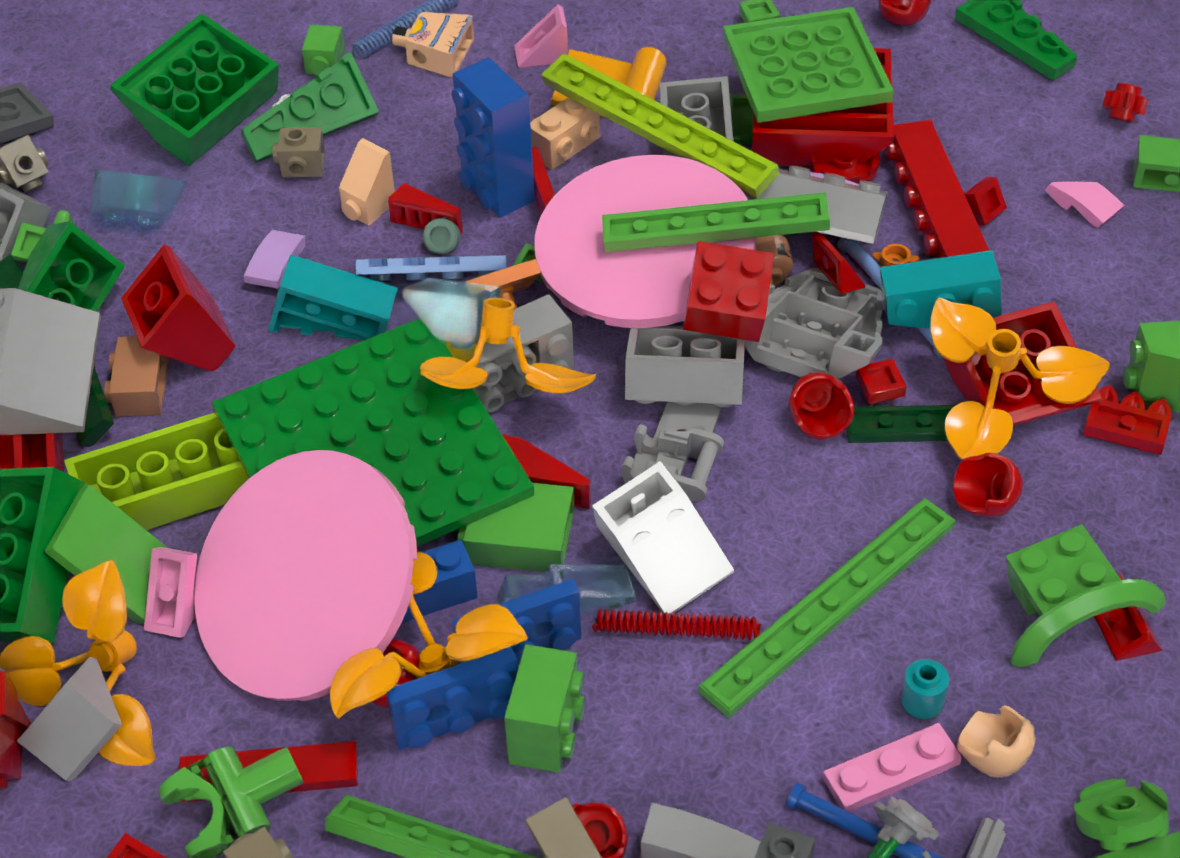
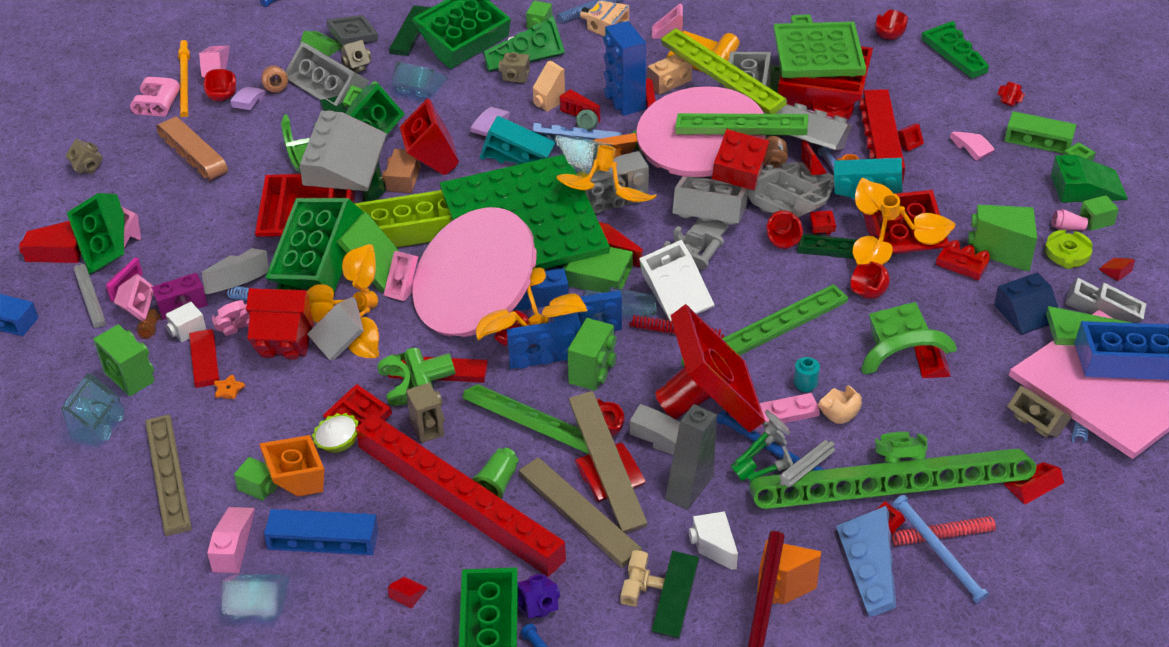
camera: 10 degrees right, 5 degrees down
(104, 108) = (407, 34): none -> dark green tile
(768, 727) = (709, 372): none -> red piece

